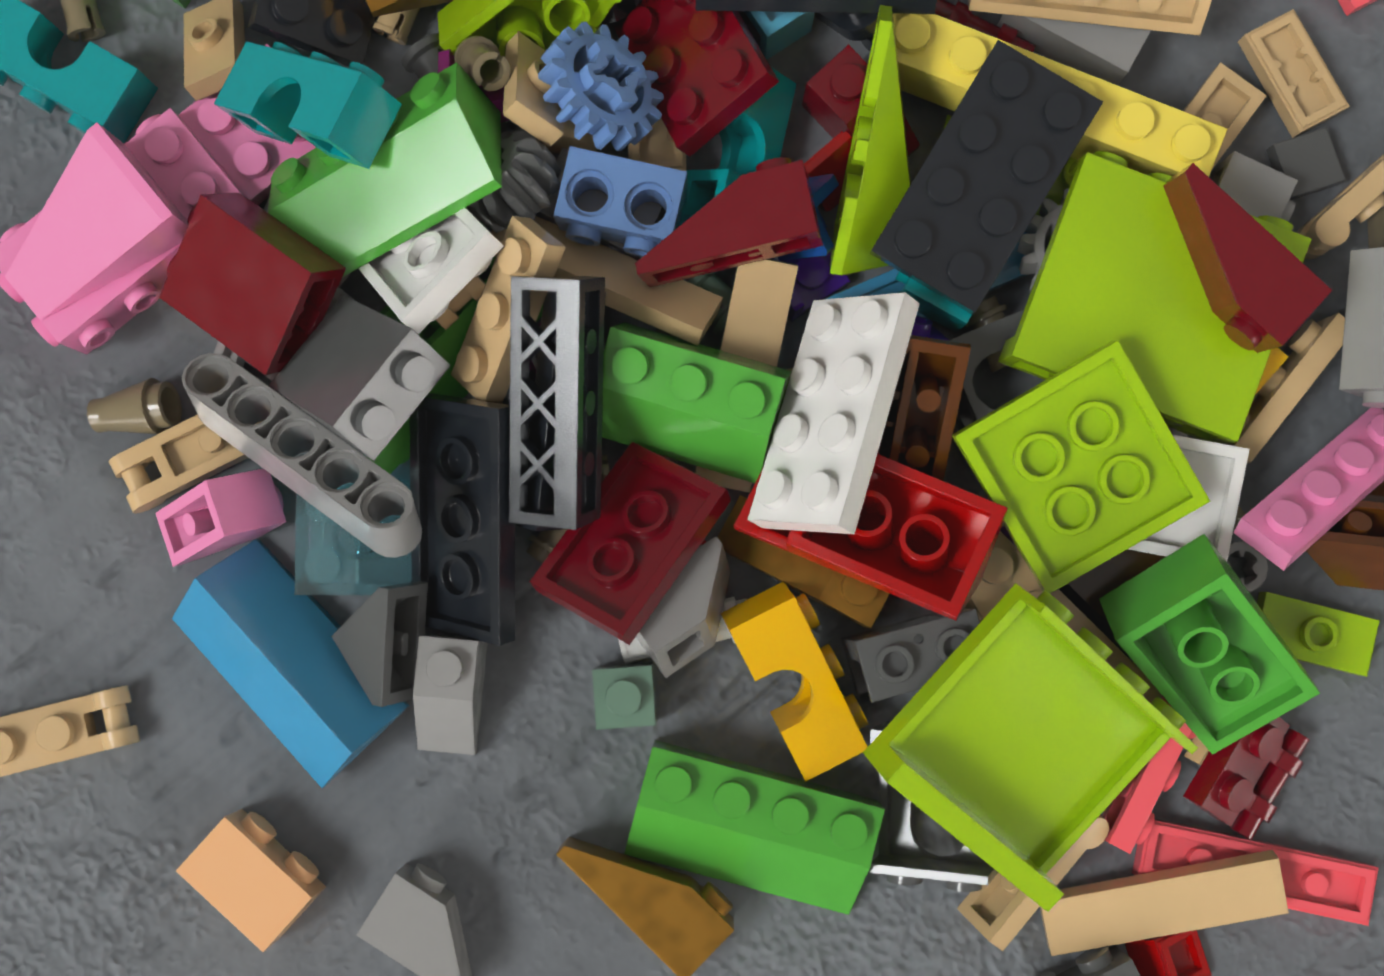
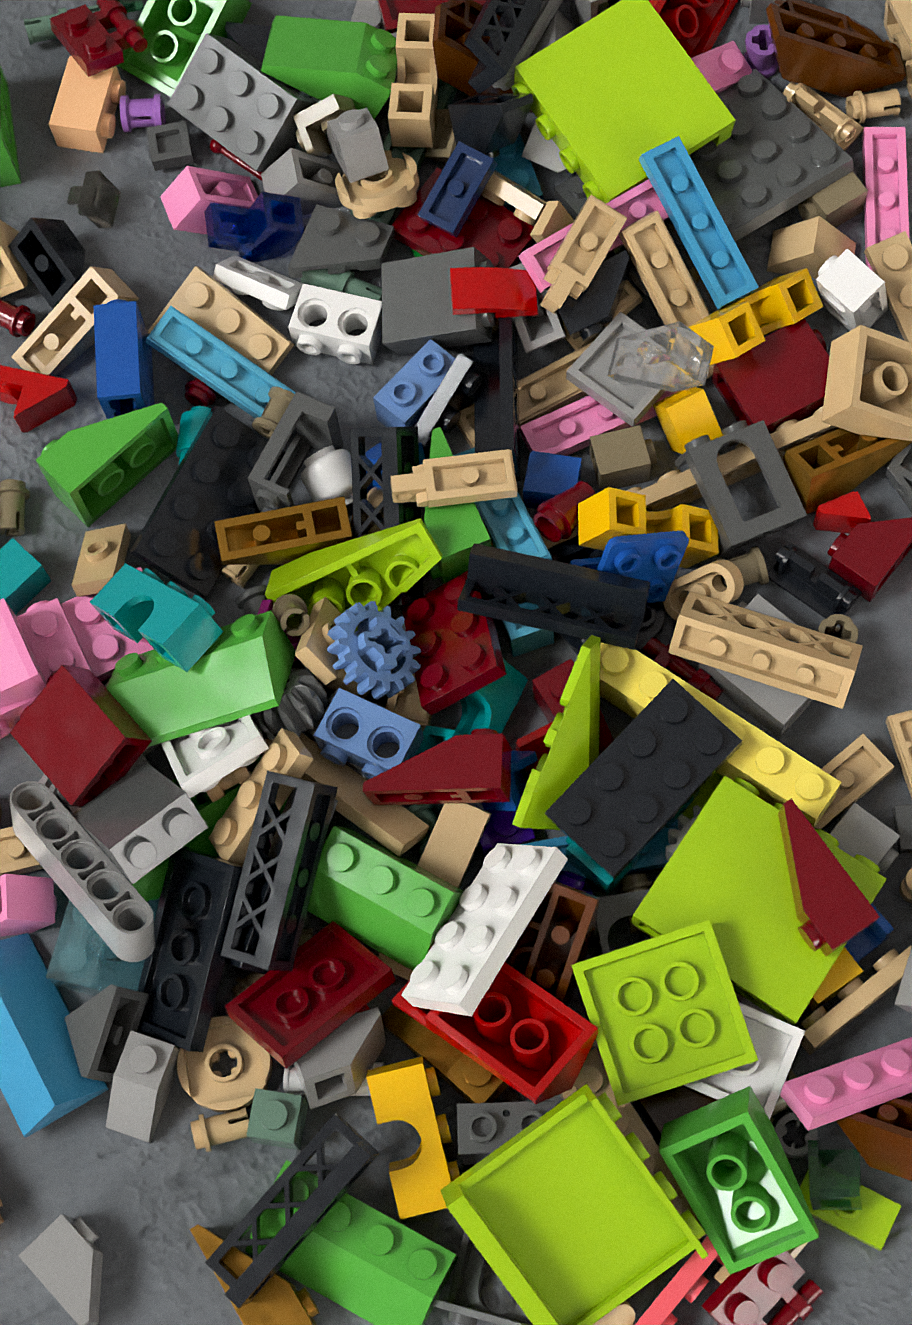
camera: 20 degrees right, 15 degrees down
(530, 673) = (210, 1087): none -> tan plate
(557, 720) = (219, 1129): none -> tan pin
(697, 825) = (298, 1225): none -> black fence
(1305, 609) = (834, 1178): none -> clear green panel

